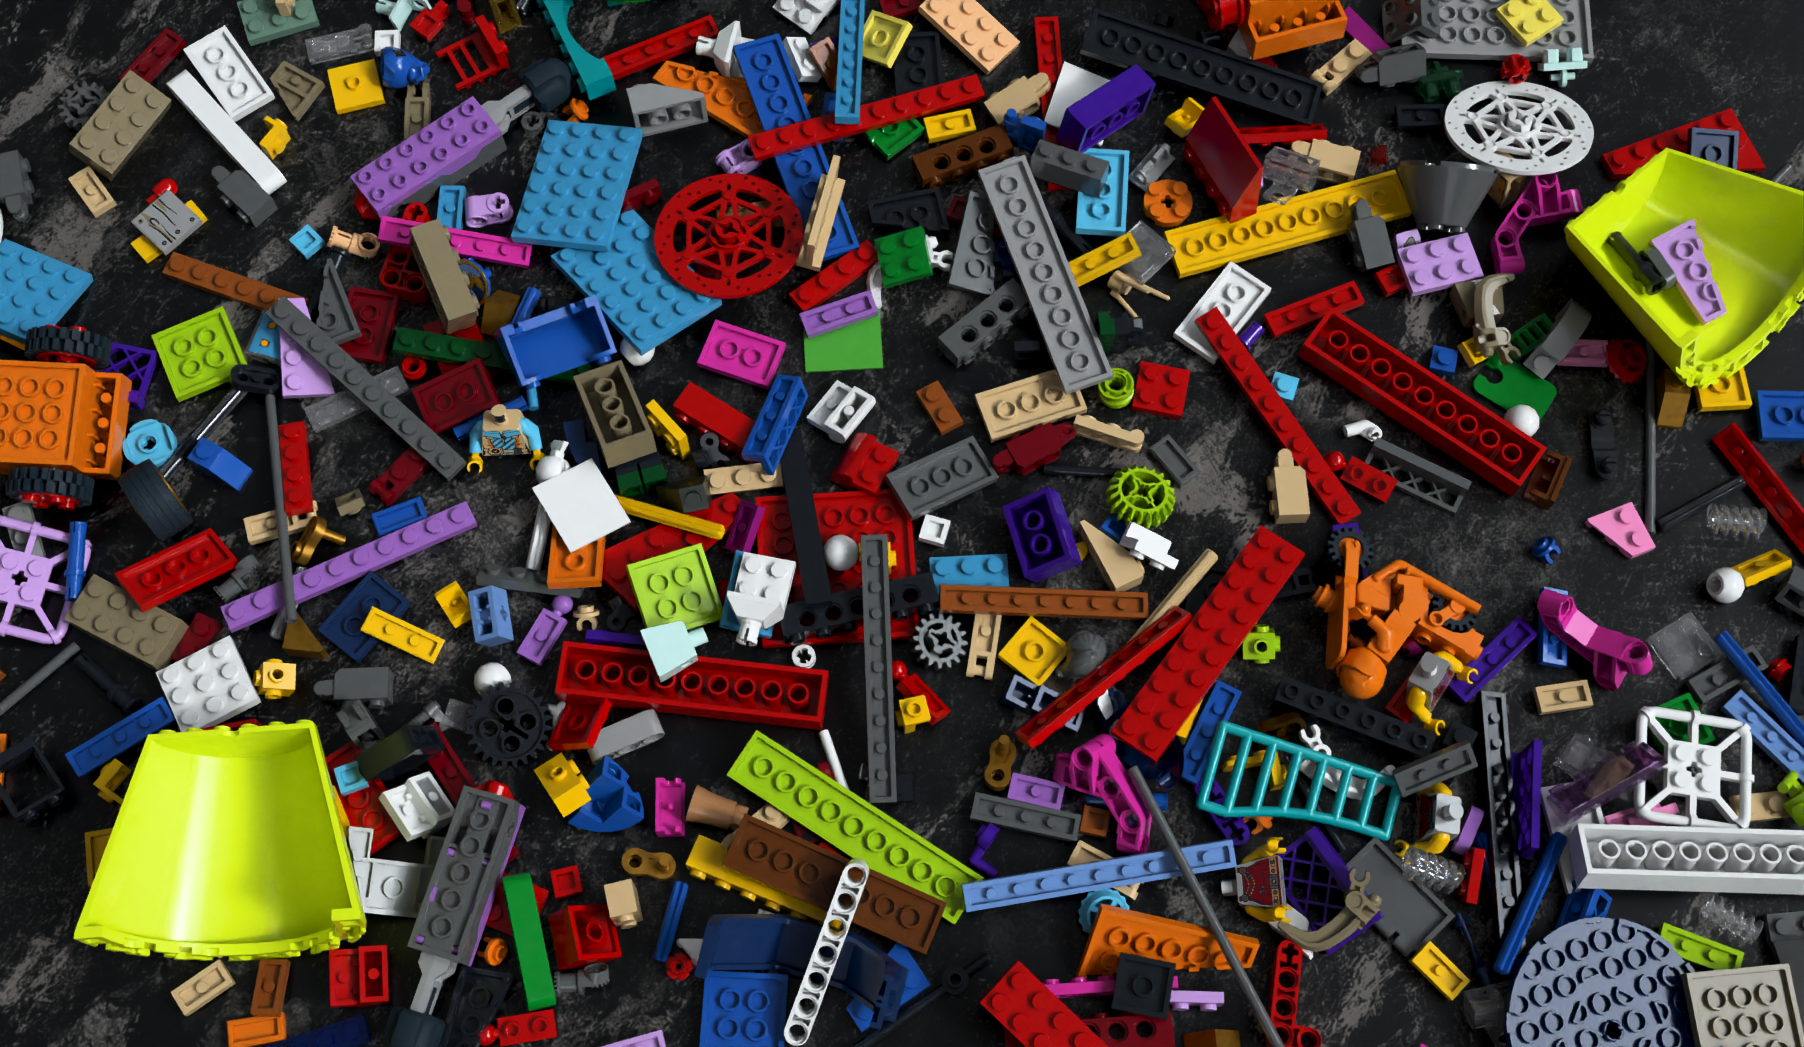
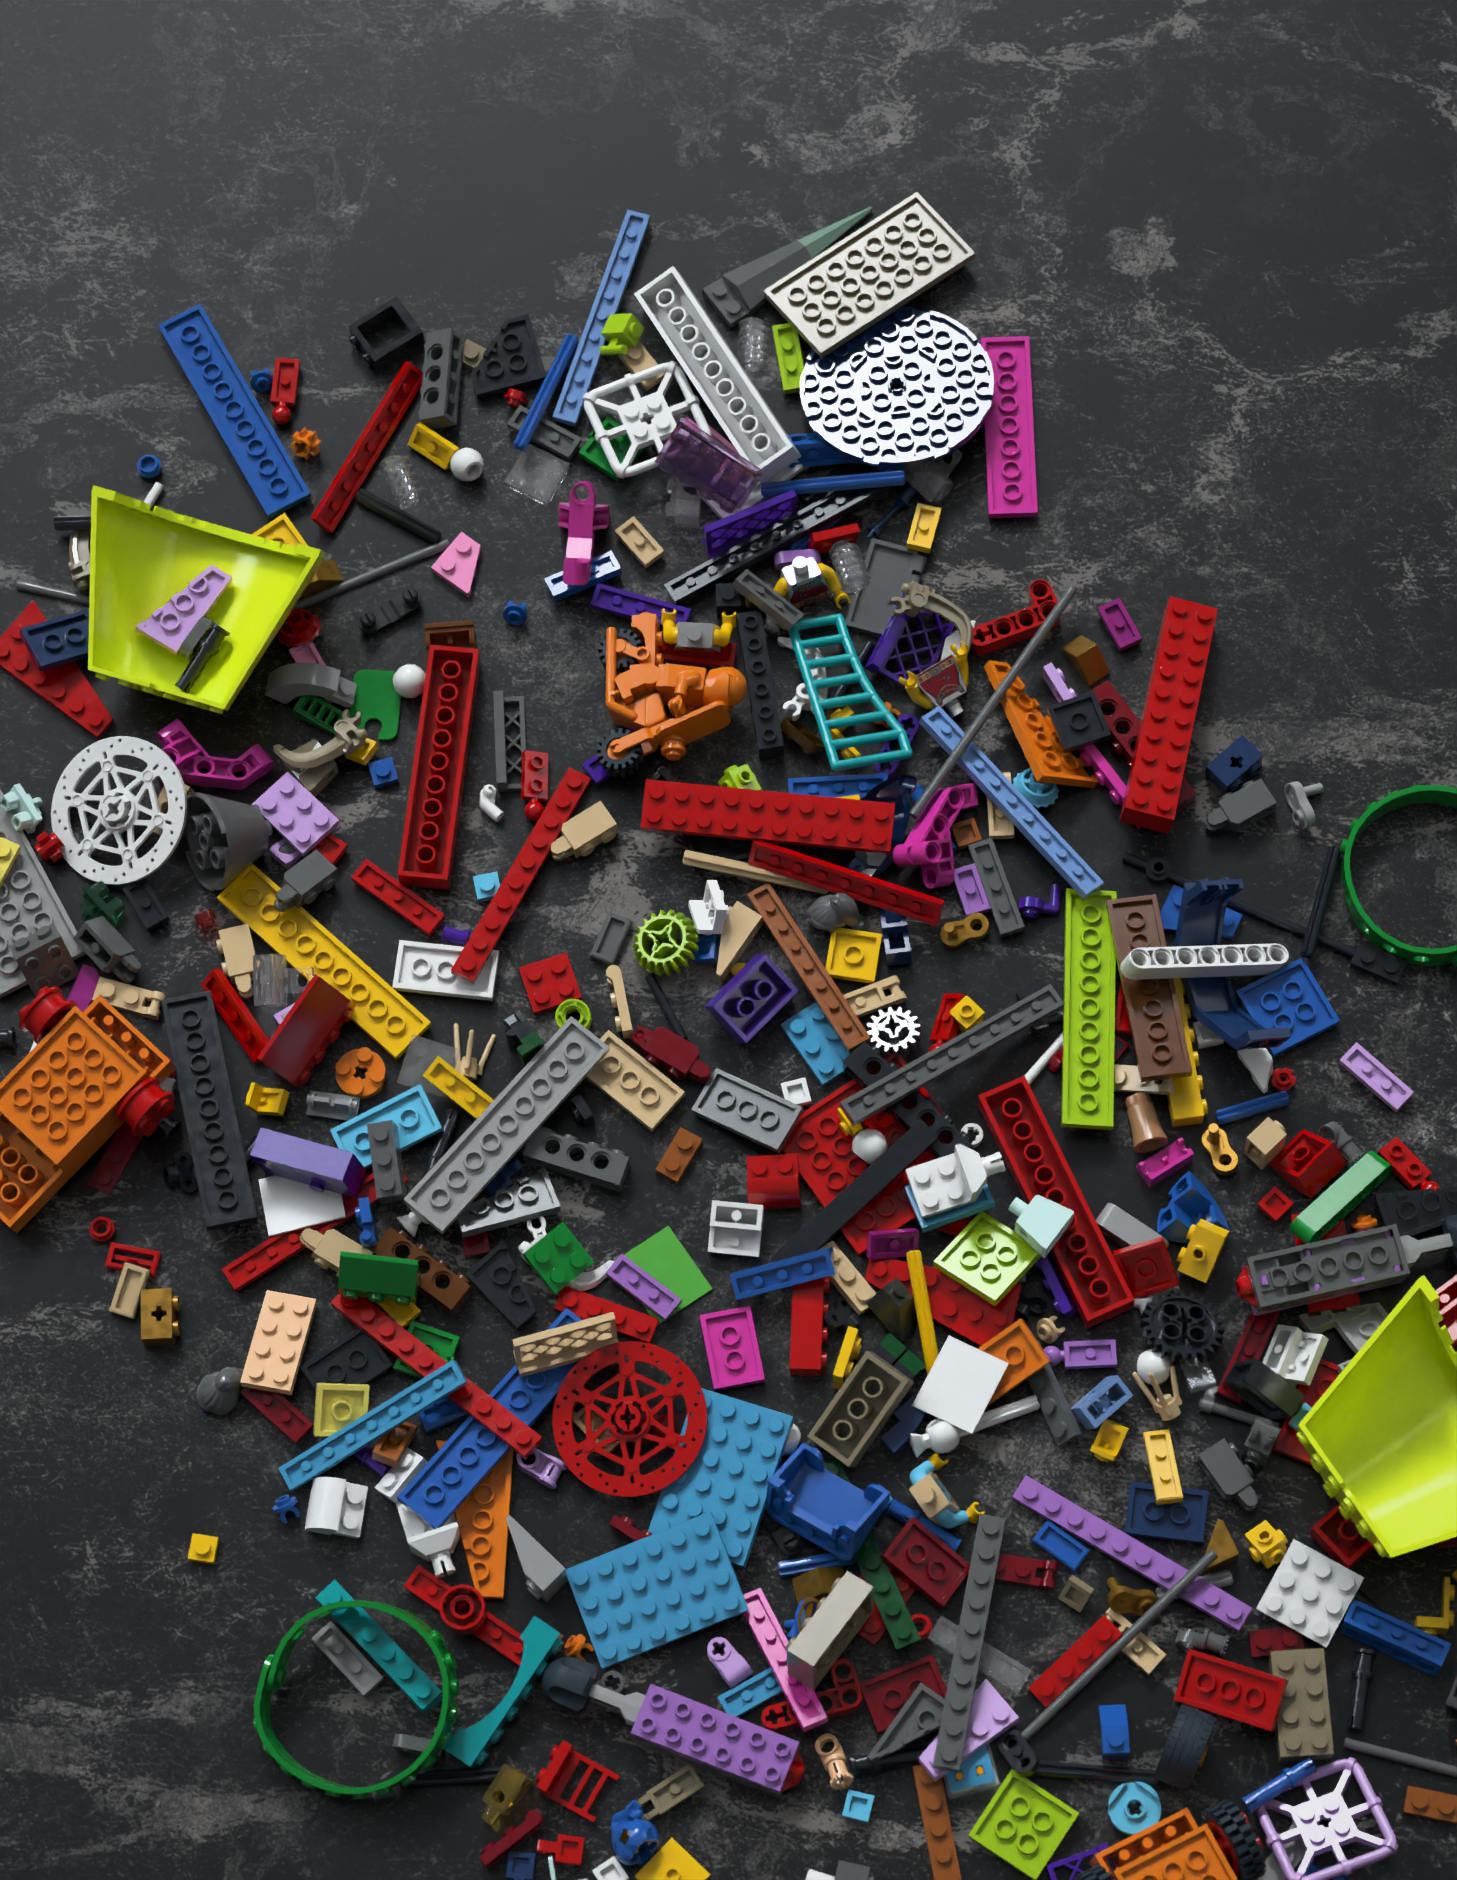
camera: 115 degrees left, 0 degrees up
(454, 670) = (1165, 1404): none -> tan plant
(655, 32) = (466, 1623): none -> red piece
(968, 105) = (378, 1278): none -> green slope

